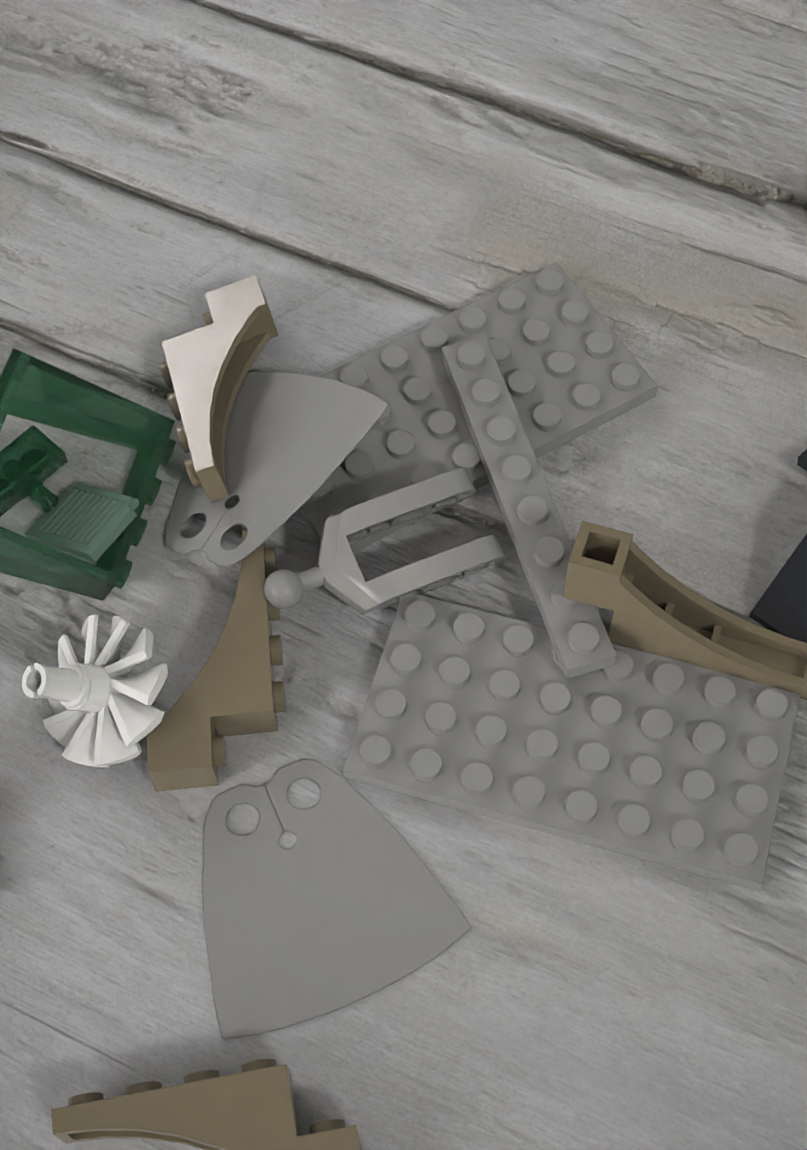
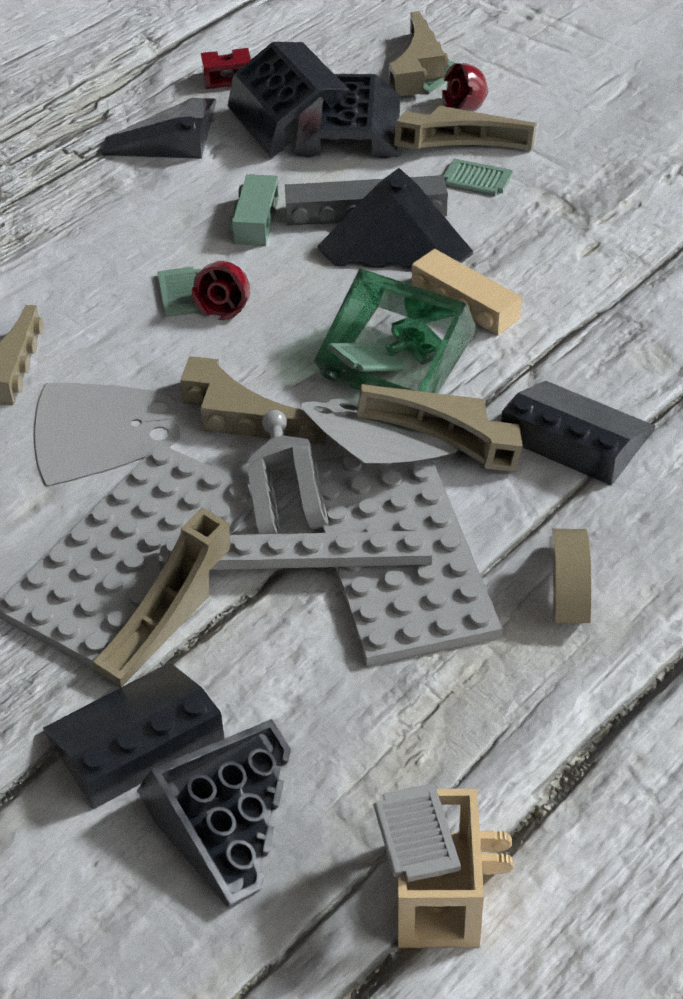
camera: 105 degrees right, 15 degrees down
(98, 702) = (245, 342): white piece -> none
(171, 249) = (576, 430): none -> black slope
(450, 189) = (571, 575): none -> dark tan arch

